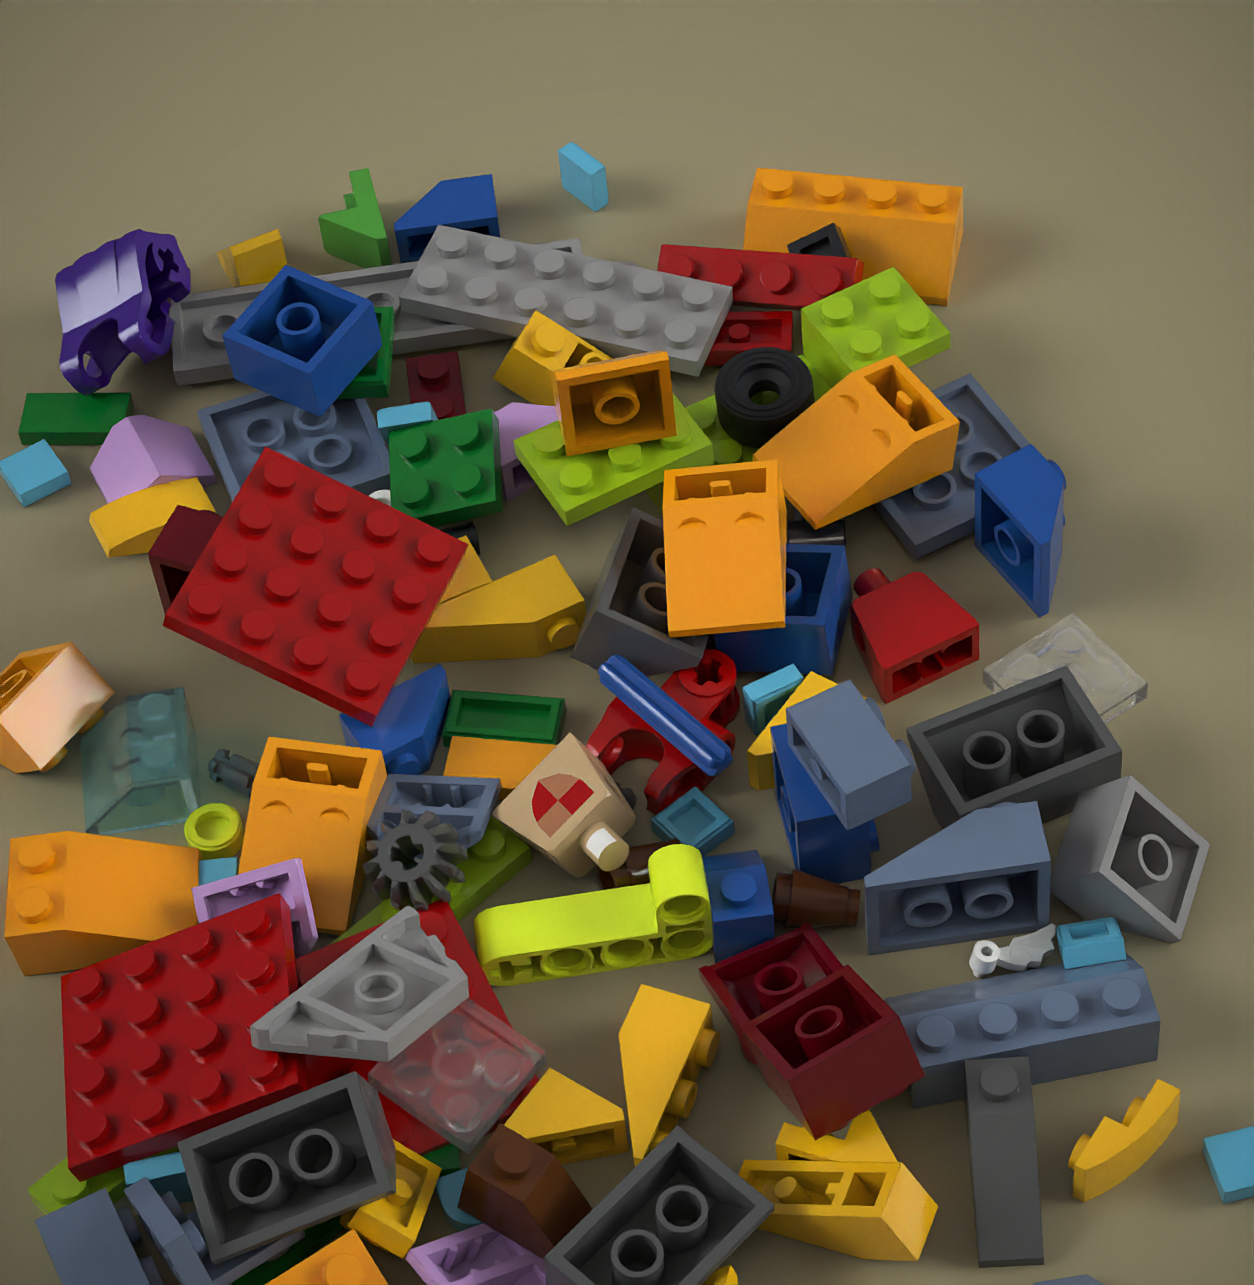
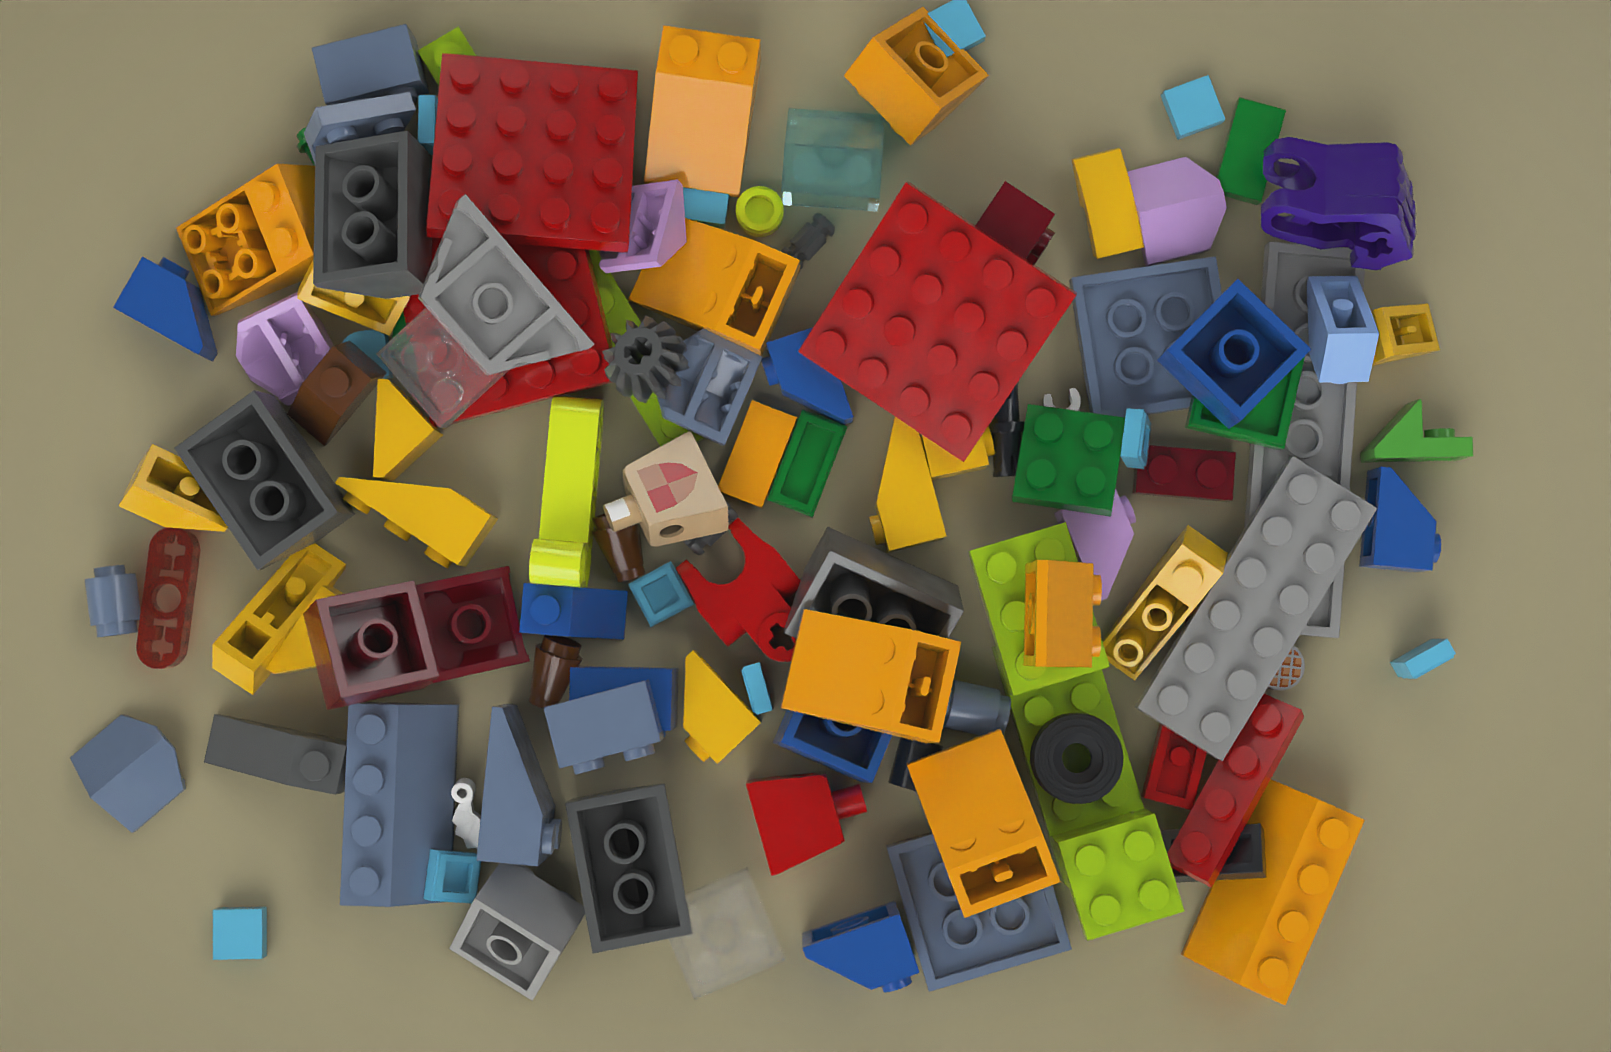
camera: 95 degrees right, 35 degrees up
(247, 275) = (1340, 329): none -> light blue slope
(665, 715) = (739, 590): blue axle -> none
(1123, 1148) = (261, 834): yellow slope -> none

